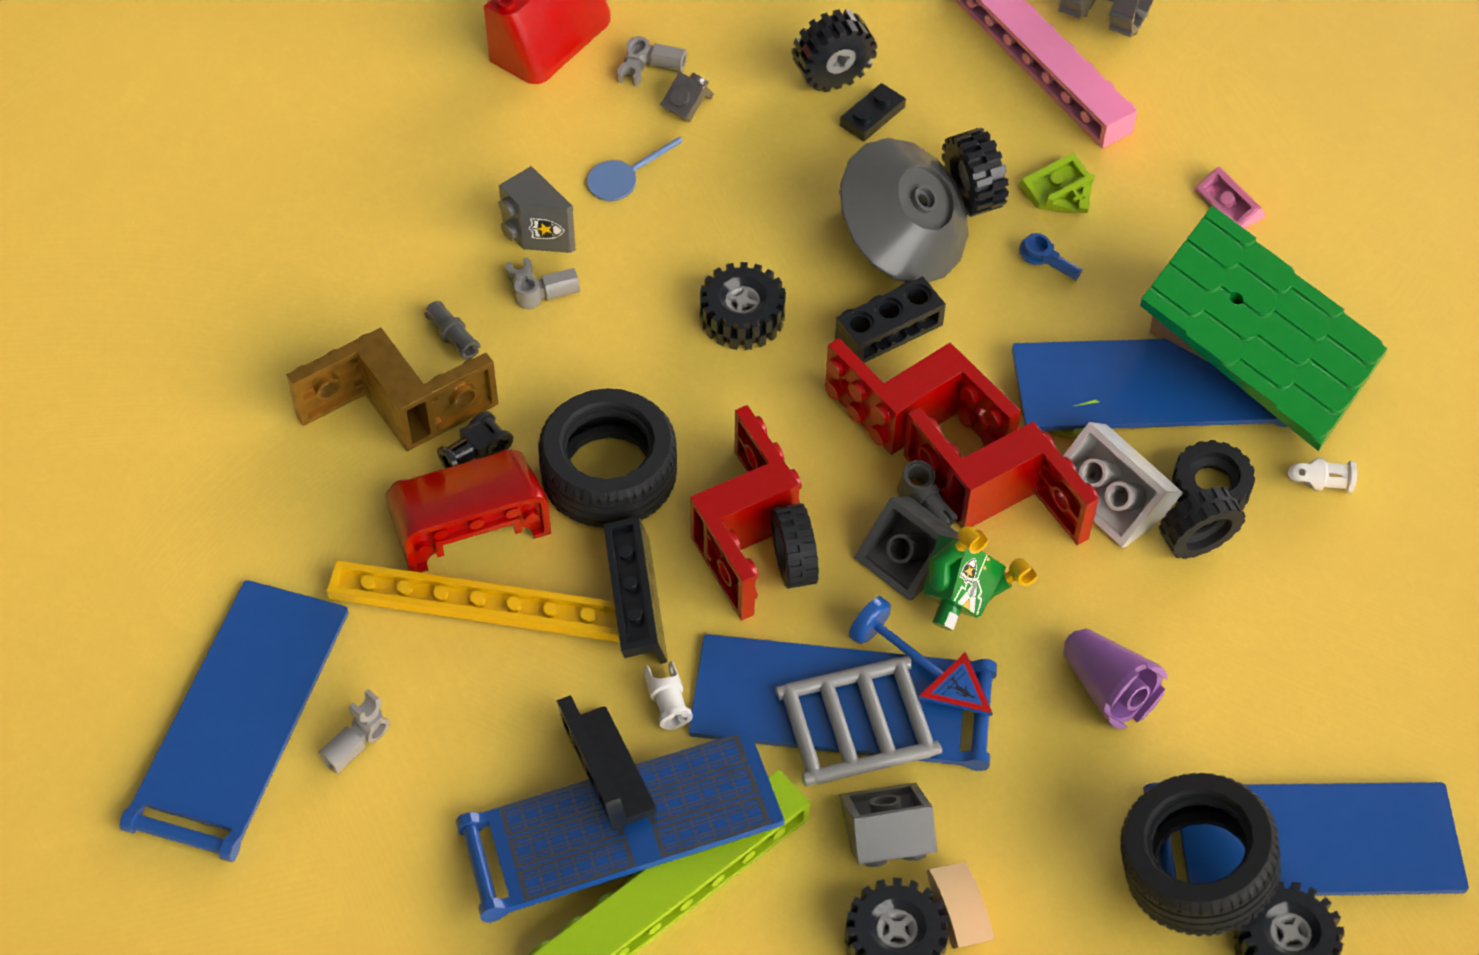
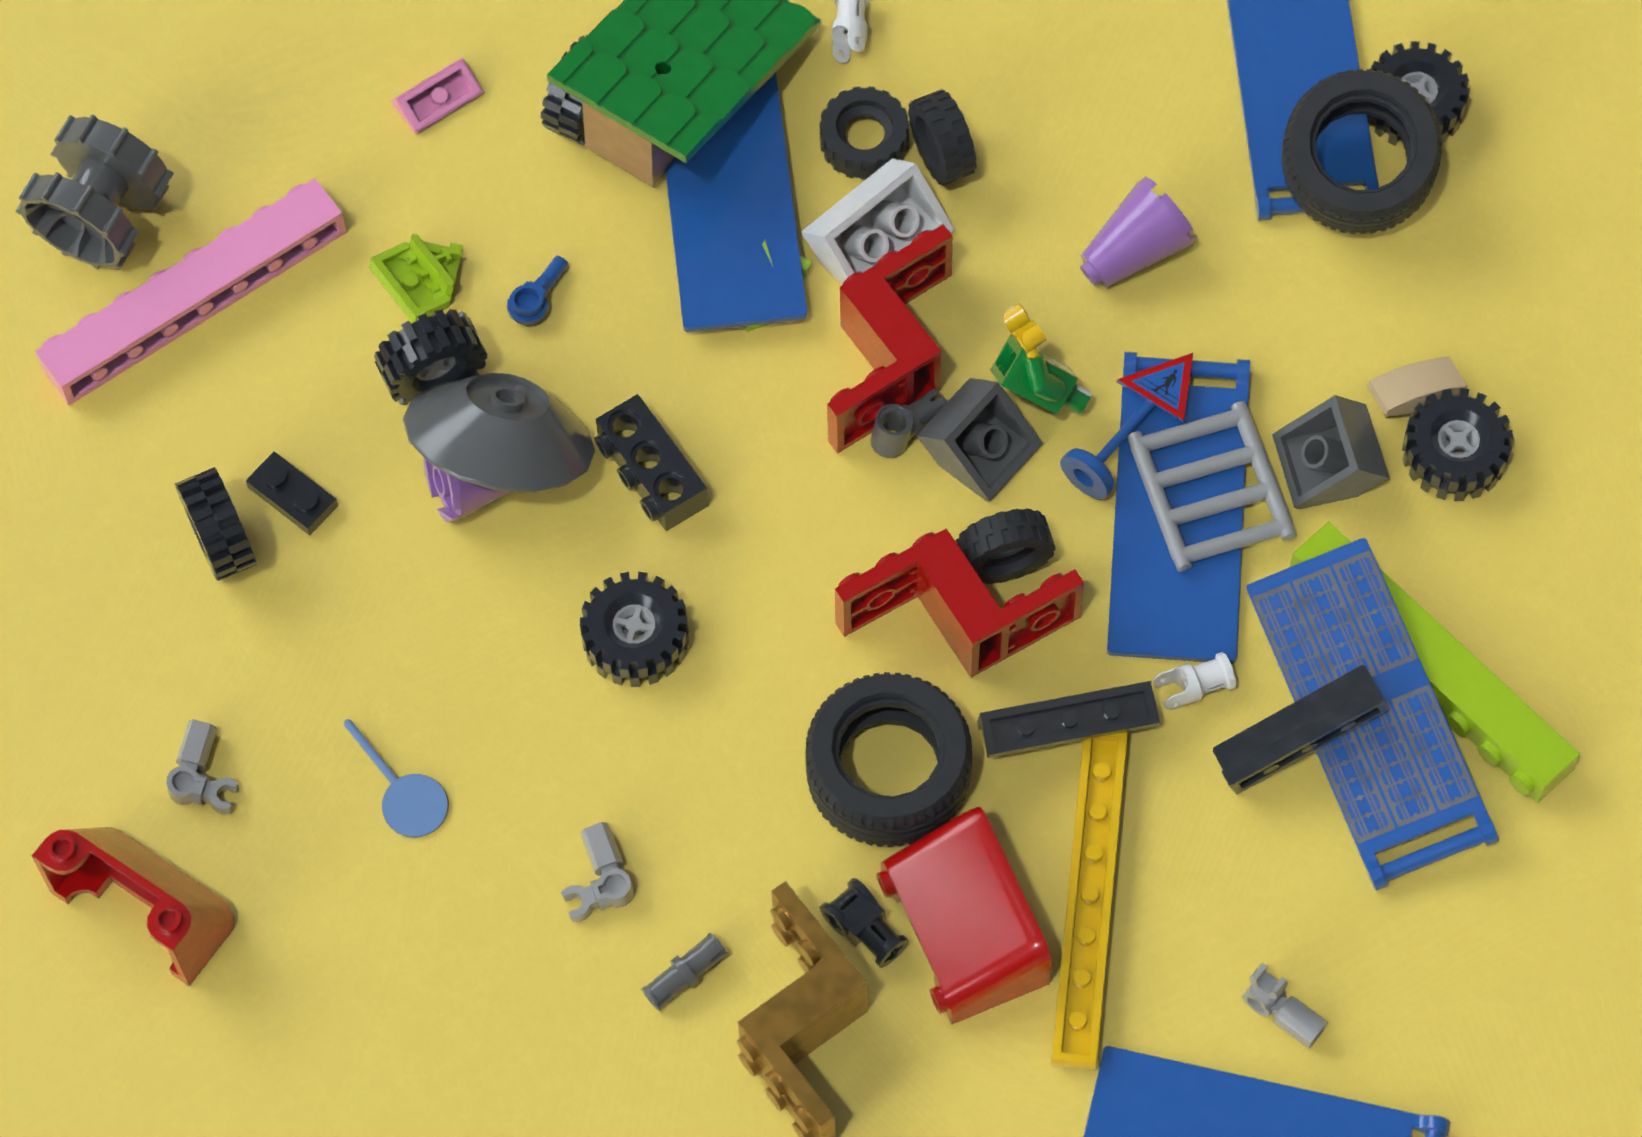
camera: 90 degrees left, 10 degrees up
(536, 213) = (503, 876): dark grey slope -> none
(686, 95) = (270, 716): flat silver bracket -> none
(938, 384) = (784, 420): red bracket -> none

